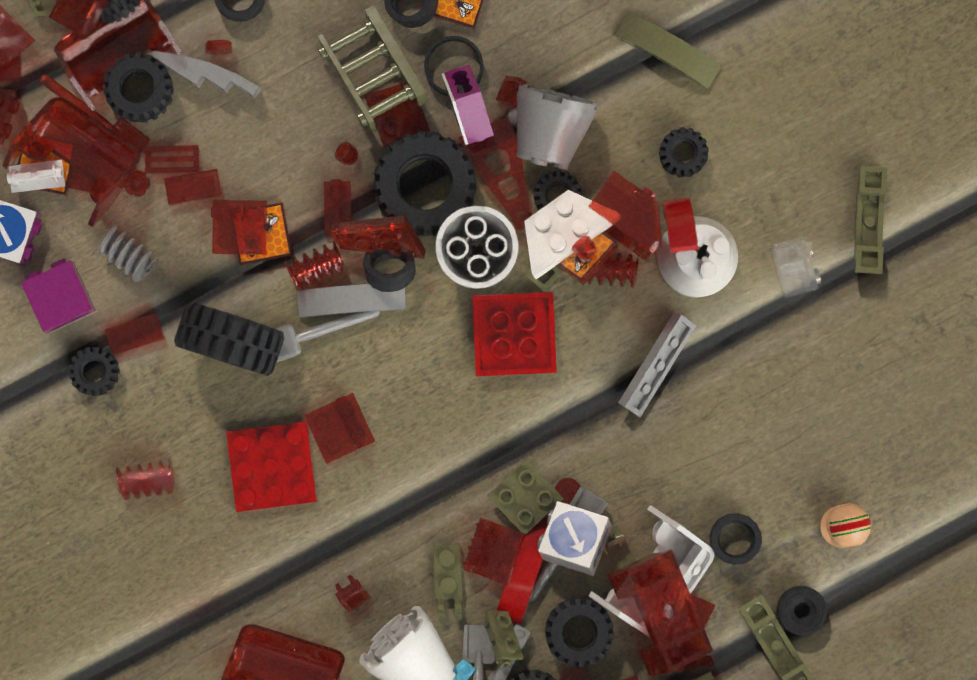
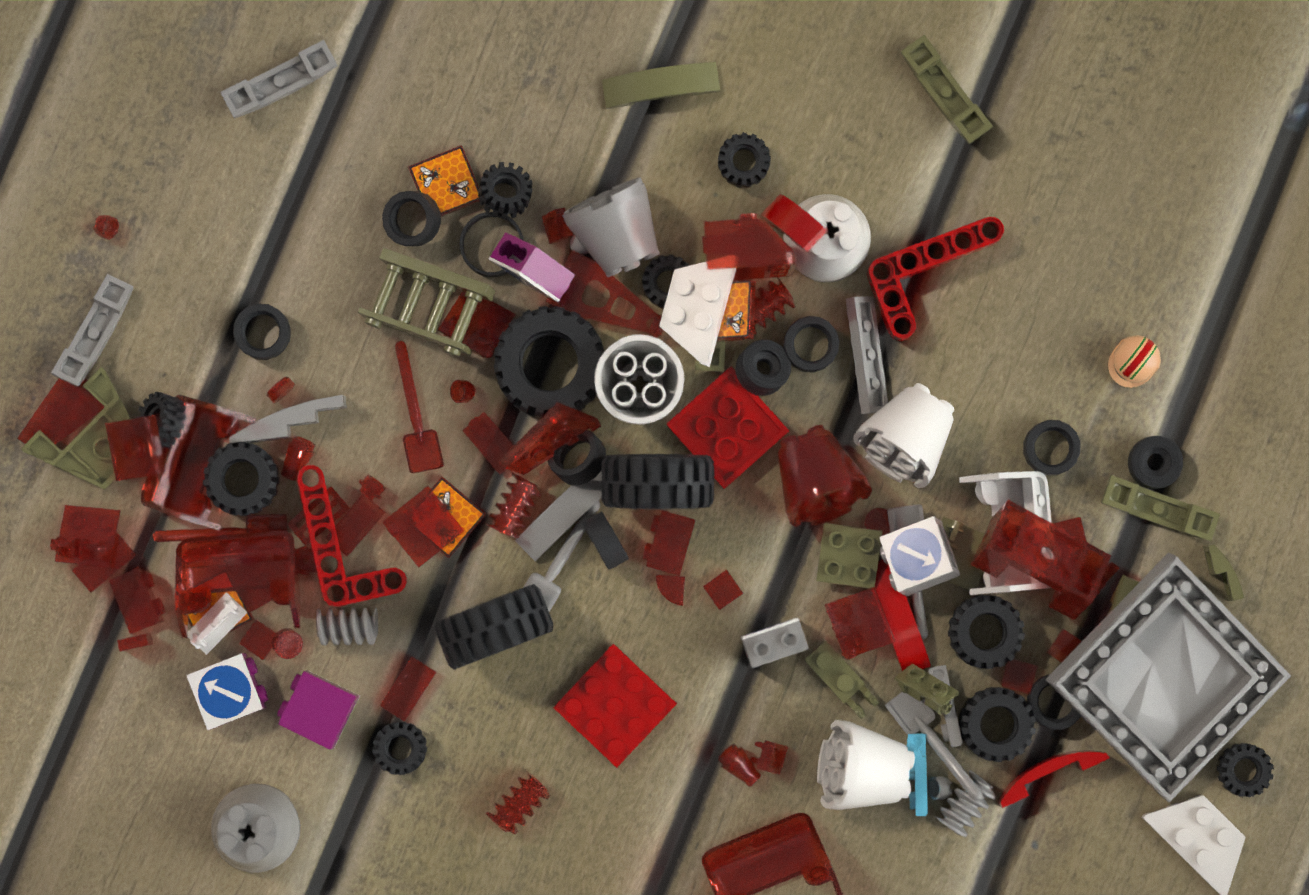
camera: 40 degrees left, 0 degrees up
(58, 213) = (258, 639): none -> clear red tile
(75, 231) = (287, 643): none -> clear red tile
(161, 191) = (332, 549): none -> red beam
(192, 104) = (297, 456): none -> clear red cone
(225, 169) = (371, 487): none -> clear red plate
(286, 170) = (422, 446): none -> clear red piece
(324, 580) = (739, 765): none -> clear red cone
(339, 428) = (645, 626): clear red hinge -> none
(360, 343) = (605, 540): none -> black tyre
(380, 416) = (671, 588): none -> clear red tile
(405, 382) = (669, 542): none -> clear red bracket
(416, 447) = (723, 589): none -> clear red tile
(420, 514) = (774, 642): none -> light grey piece
(431, 330) = (657, 481): none -> black tyre
(504, 25) = (507, 176): none -> black tyre
(549, 423) = (819, 478): none -> clear red cone
(584, 248) = (729, 307): clear red hinge -> none
(589, 312) = (755, 381): none -> black tyre
(623, 303) = (828, 330): none -> black tyre
(638, 445) = (907, 435): none -> white cone
(752, 331) = (923, 262): none -> red beam
(795, 267) = (916, 180): clear brick -> none

